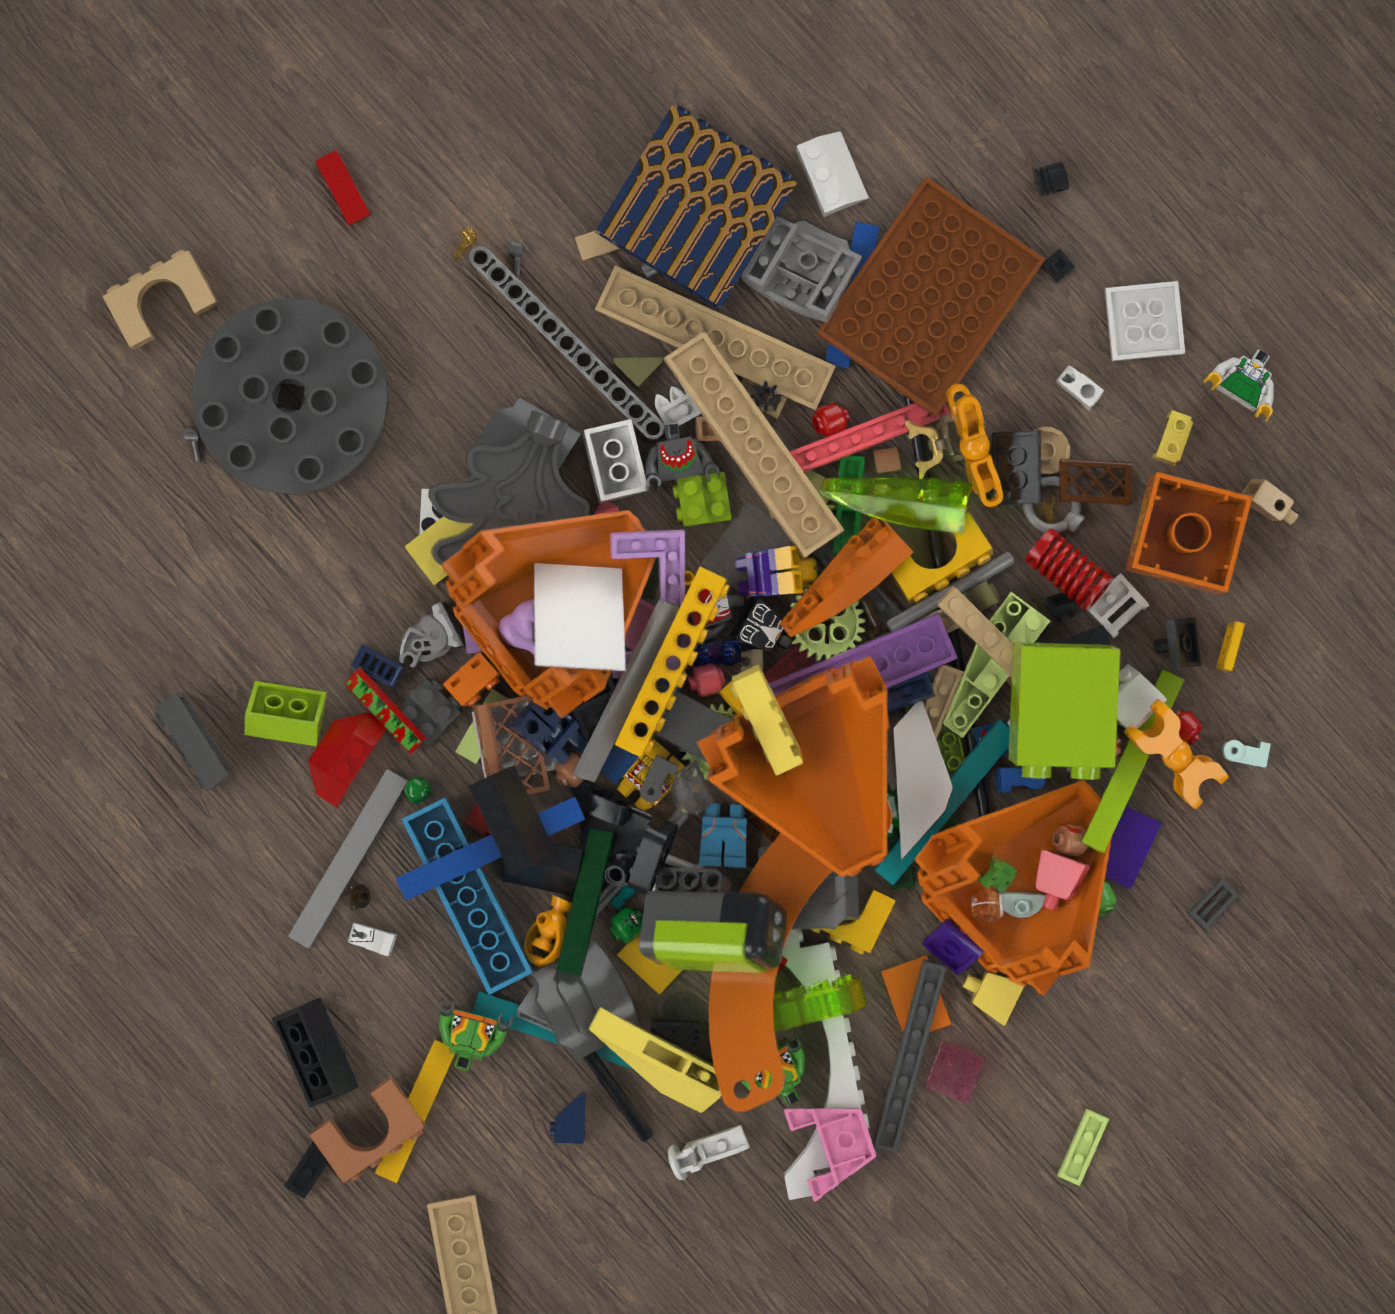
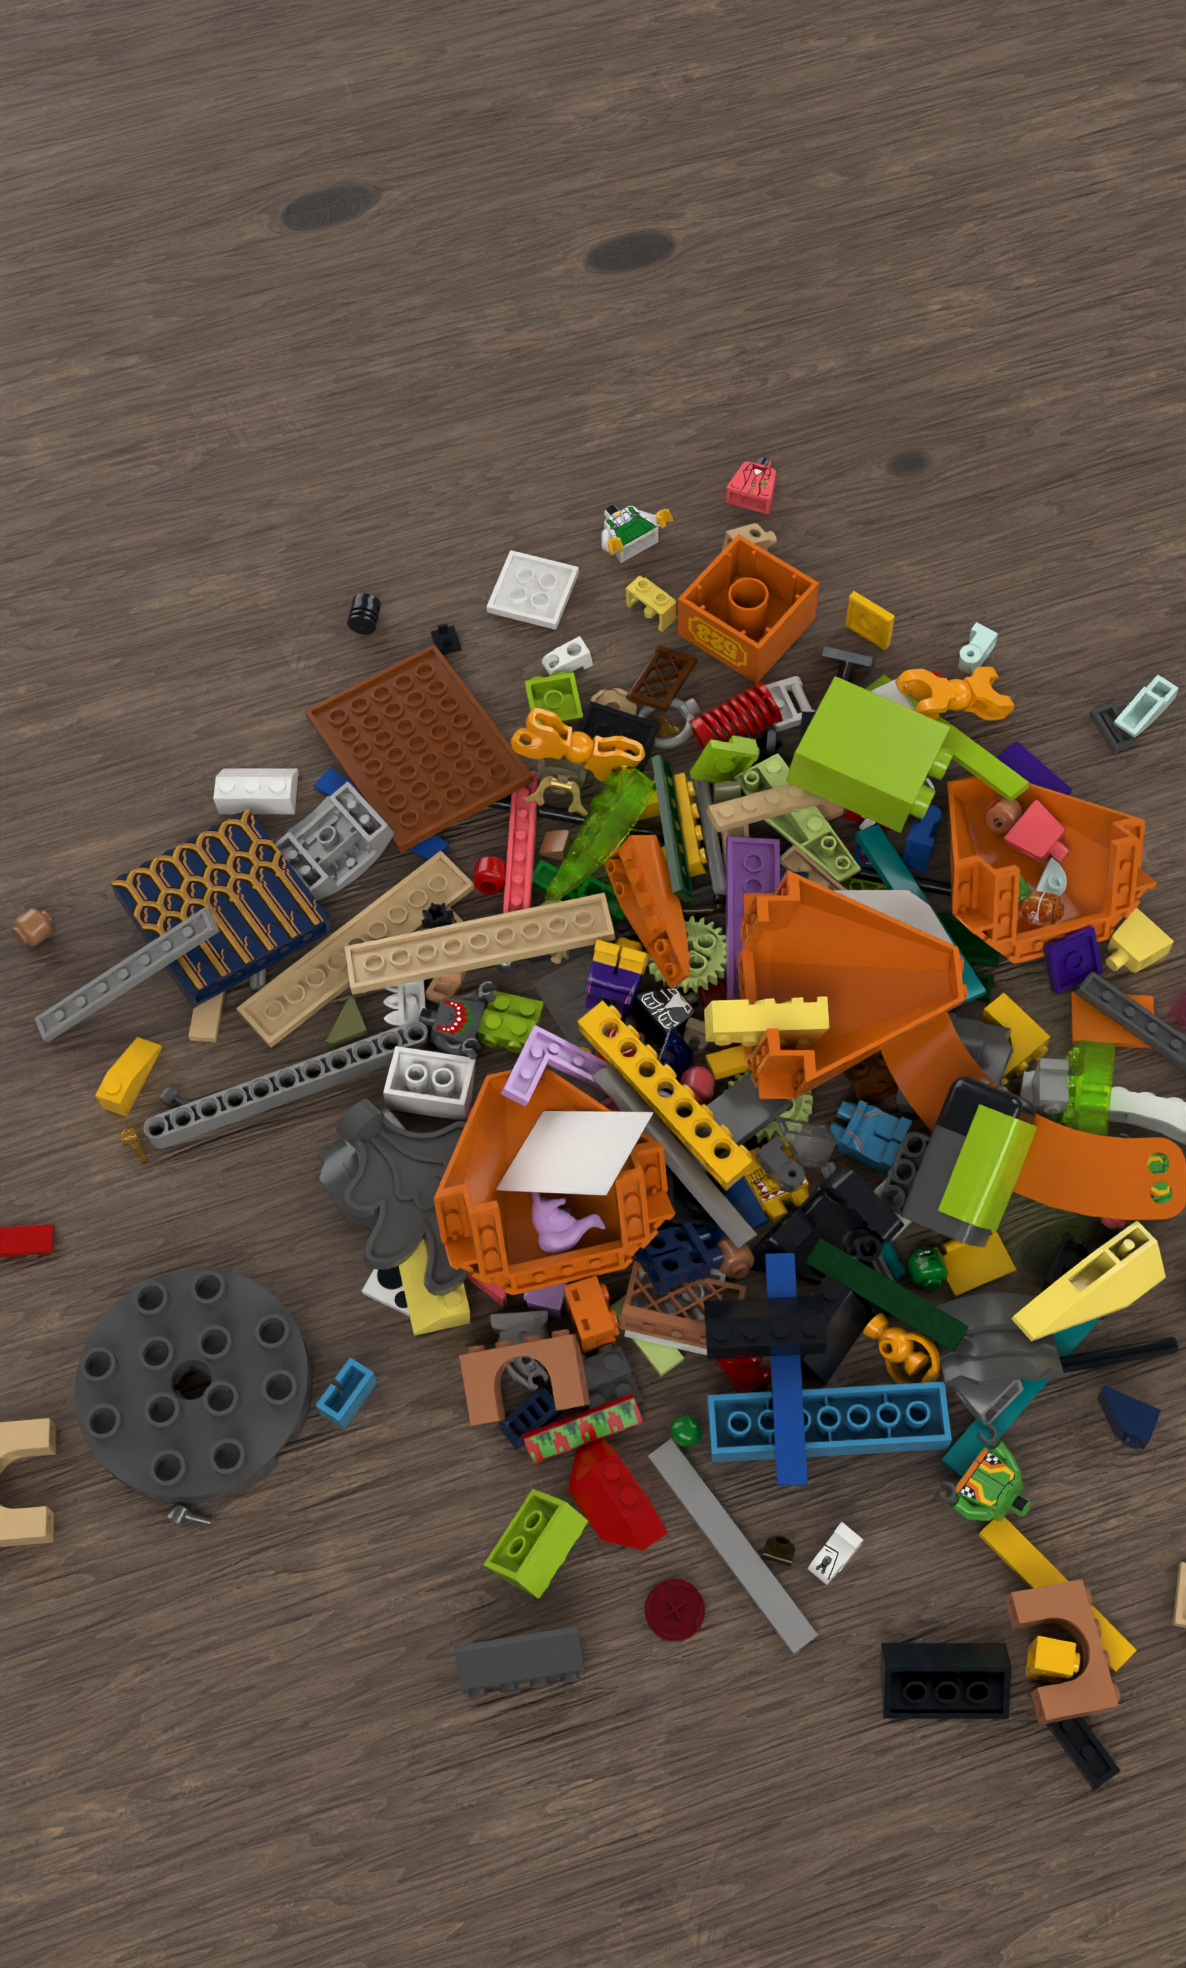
camera: 60 degrees left, 25 degrees down
(282, 836) = (674, 1610): none -> dark red tile
(323, 518) = (356, 1384): none -> dark azure piece
(357, 1125) = (1051, 1660): none -> yellow brick
(426, 668) = (484, 1370): none -> nougat arch
(520, 206) = (127, 1076): none -> yellow slope
(596, 164) = (127, 974): none -> light grey tile
(615, 51) = (32, 927): none -> medium nougat head
(807, 971) = (1050, 1088): none -> light grey hips
(928, 562) = (672, 828): none -> dark green tile
(1023, 580) = (724, 760): none -> lime plate
(1028, 395) = (555, 695): none -> lime plate
(1242, 926) = (1147, 706): none -> light aqua slope
(1349, 477) = (753, 486): none -> coral torso

